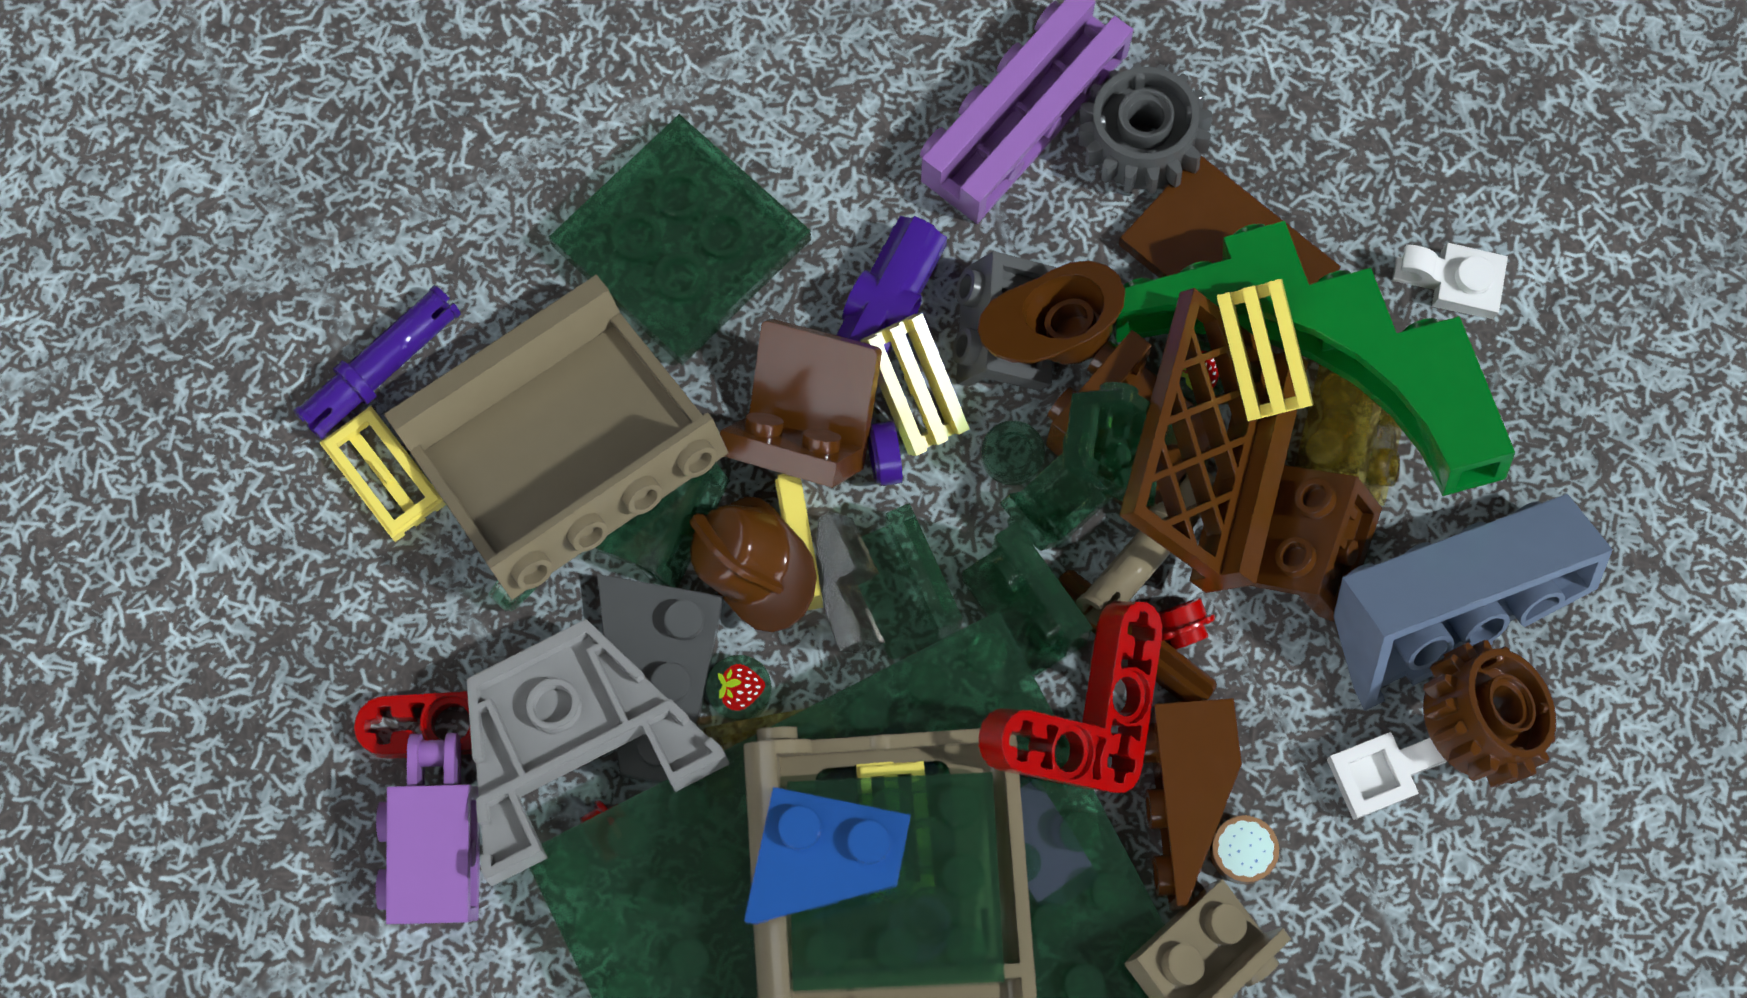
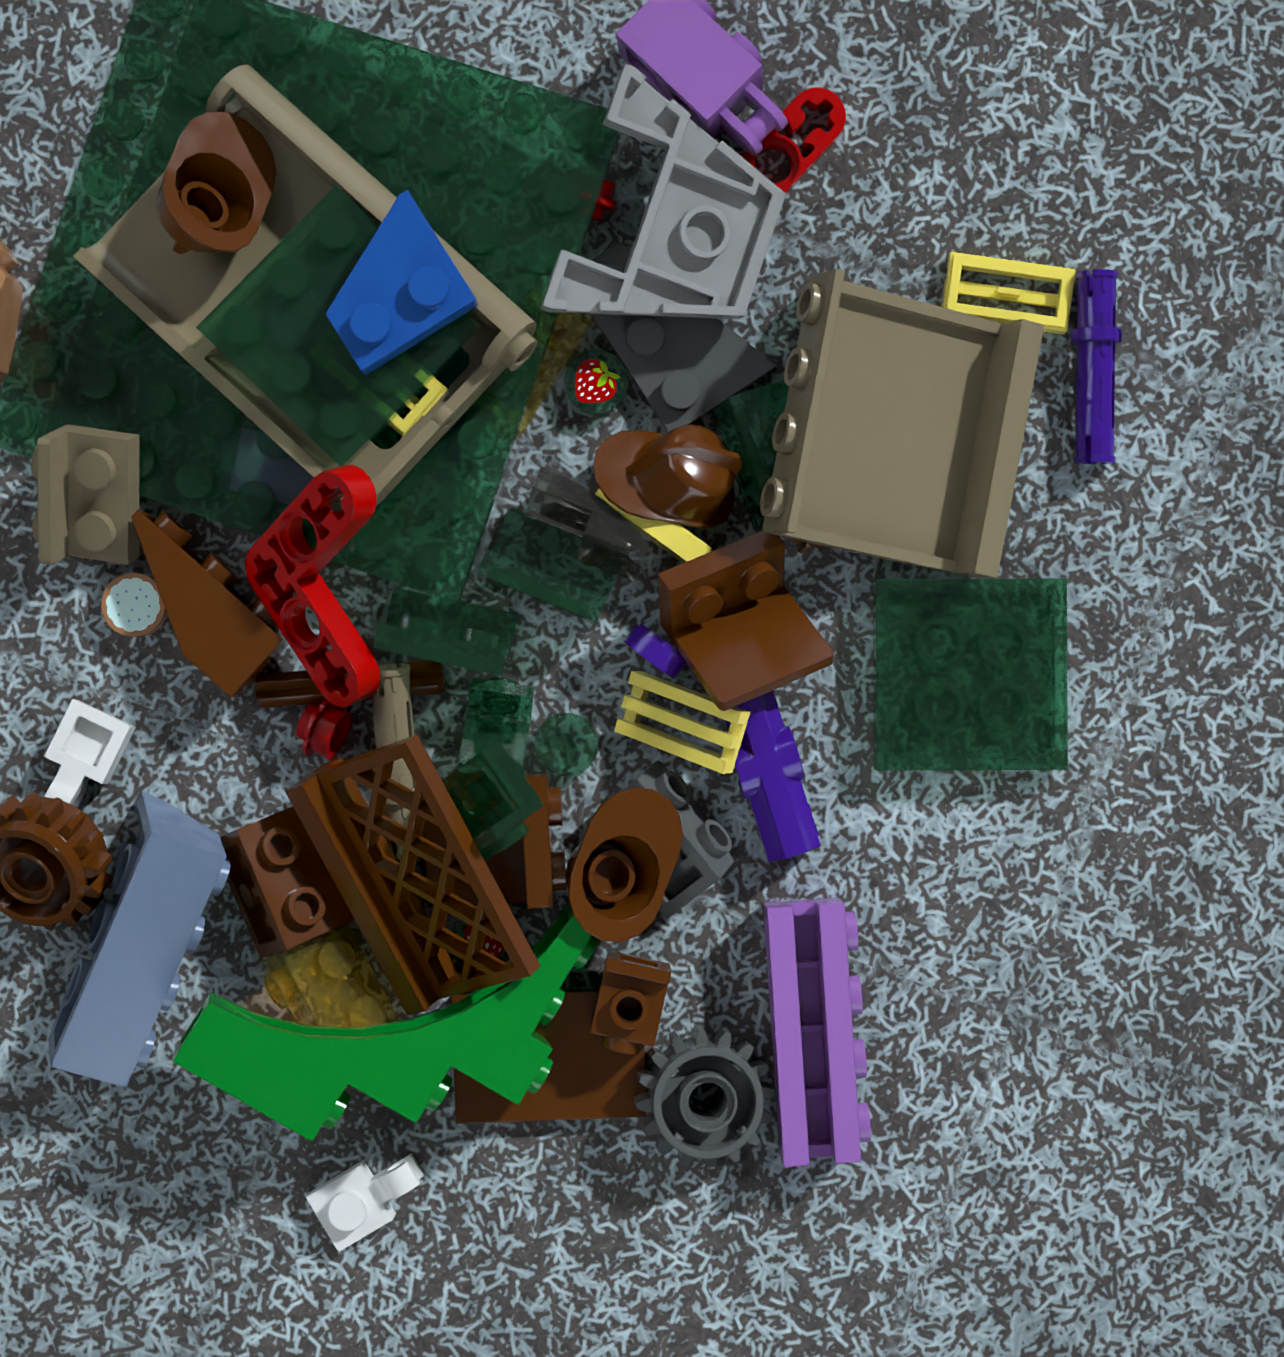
camera: 140 degrees right, 15 degrees up
(1133, 247) = (630, 977): none -> reddish brown brick
(1239, 354) = (393, 949): light yellow tile -> none

